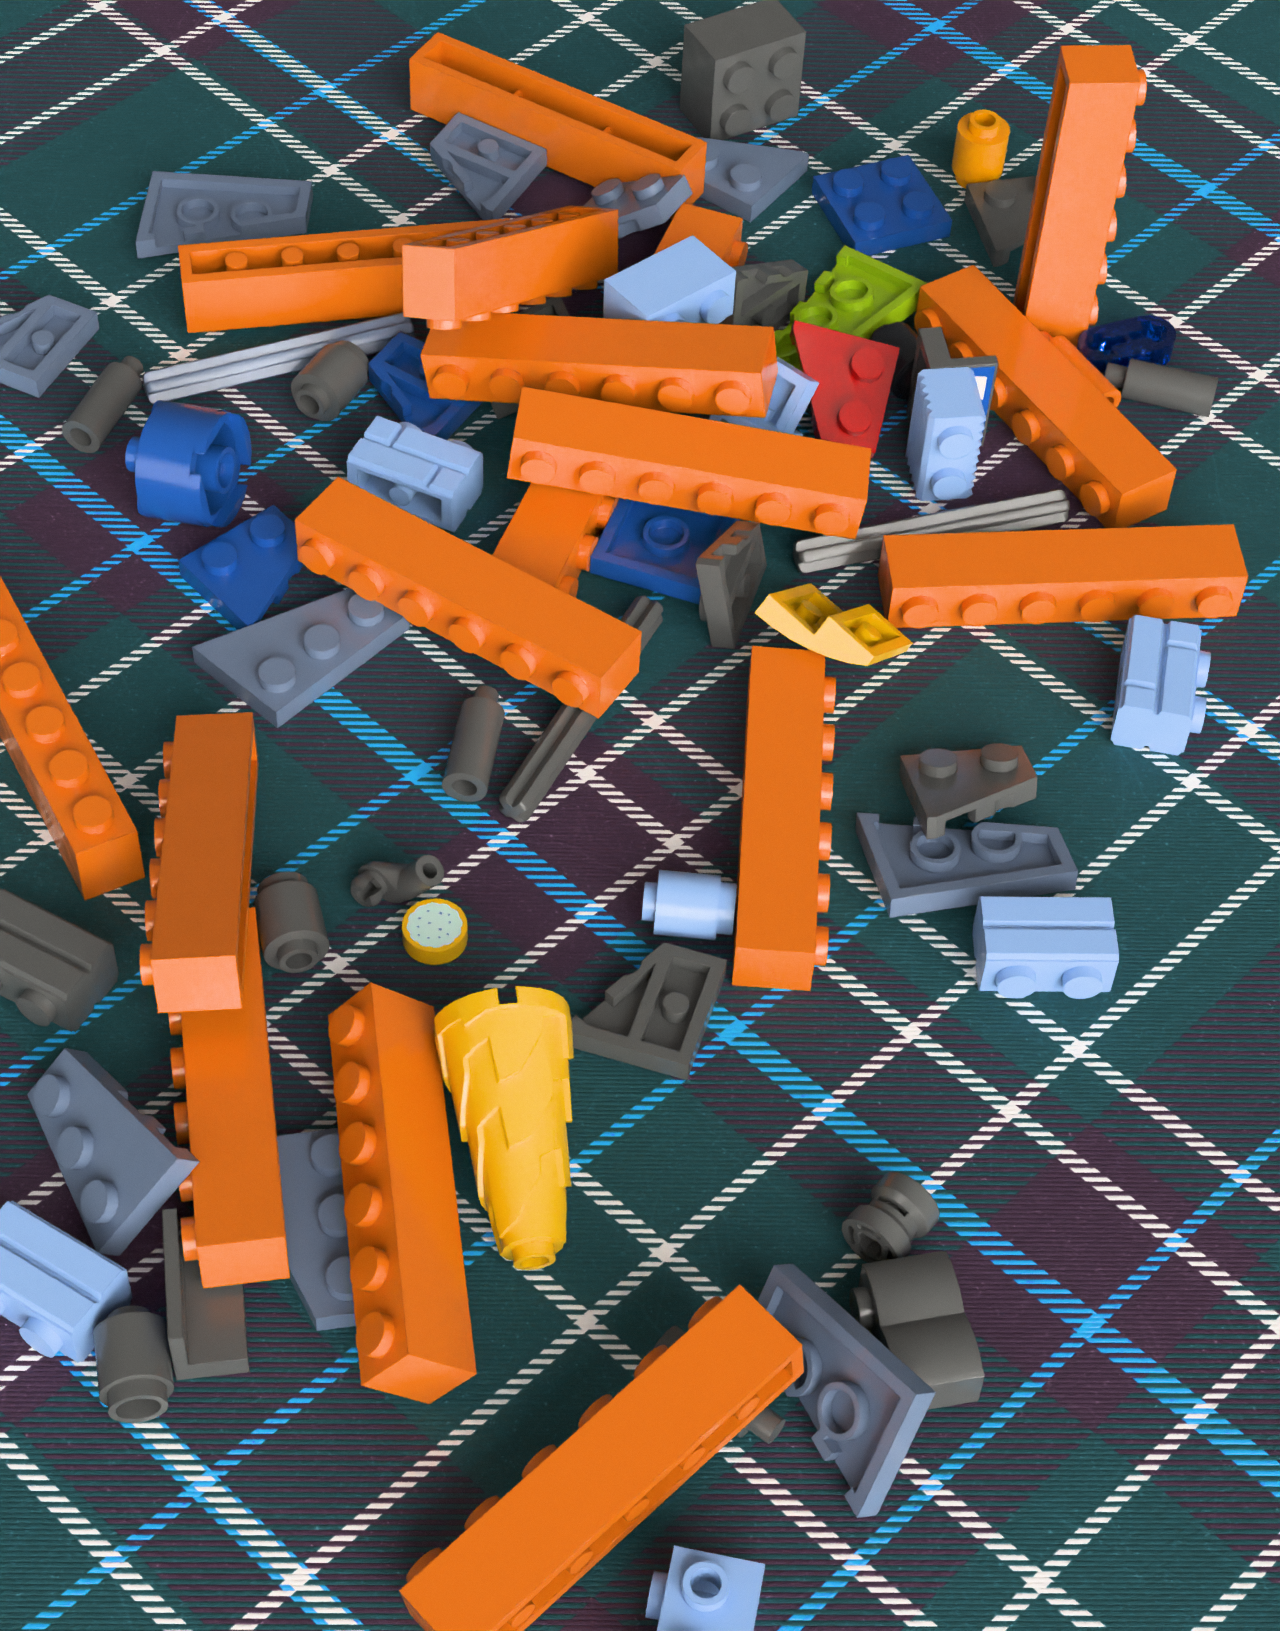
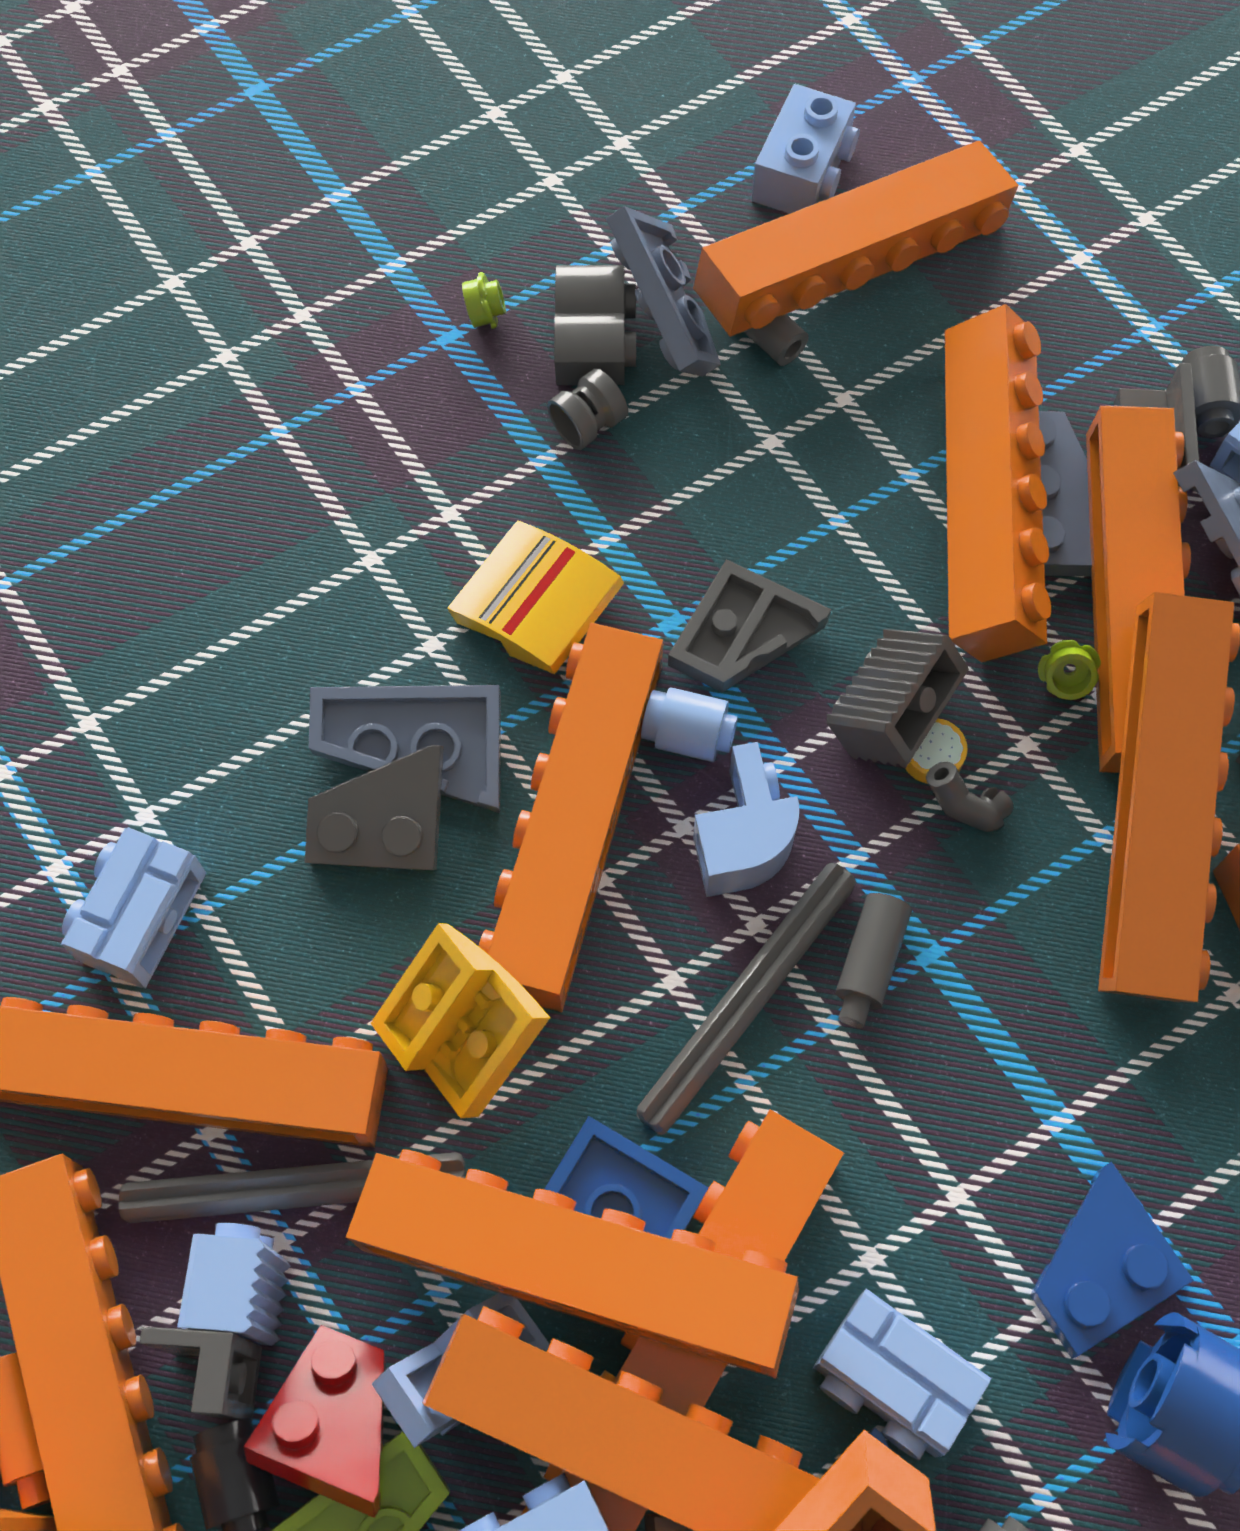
camera: 165 degrees left, 15 degrees up
(290, 922) = (1075, 764): dark grey brick -> none
(298, 1016) = (1073, 684): none -> lime plate
(299, 653) = (1045, 1127): sand blue wing -> none
(468, 597) = (883, 1126): orange brick -> none
(482, 941) = (897, 696): none -> dark grey brick
(513, 1108) = (889, 540): yellow cone -> none
(608, 814) = (747, 842): none -> light blue brick
(729, 581) = (565, 1101): dark grey wing -> none
(884, 1013) = (536, 596): none -> yellow slope
(1045, 945) = (367, 629): light blue brick -> none
(1062, 1346) = (483, 301): none -> lime plate

